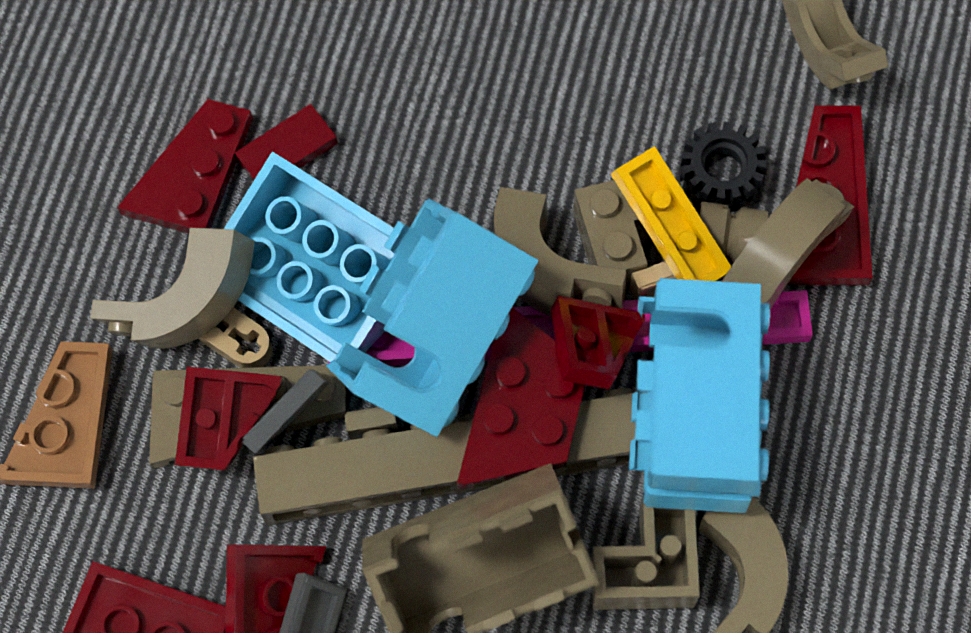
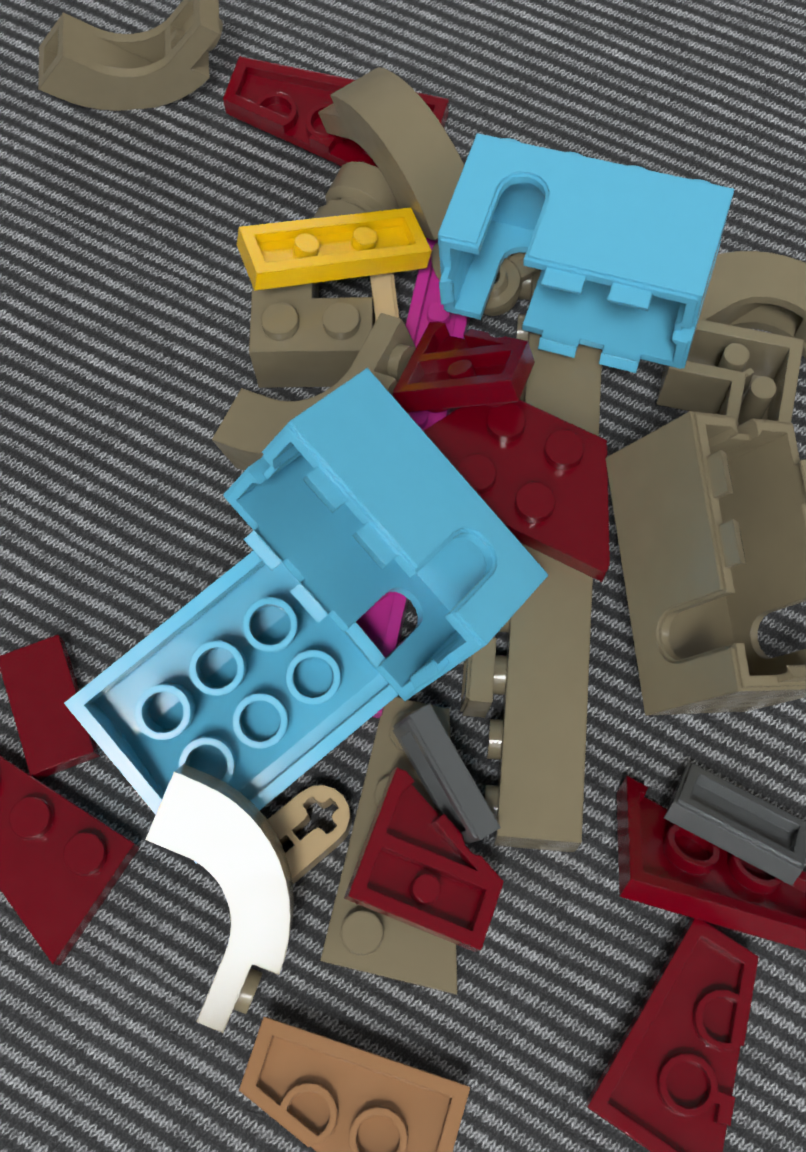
camera: 75 degrees left, 0 degrees up
(725, 142) = (252, 185): black tyre -> none

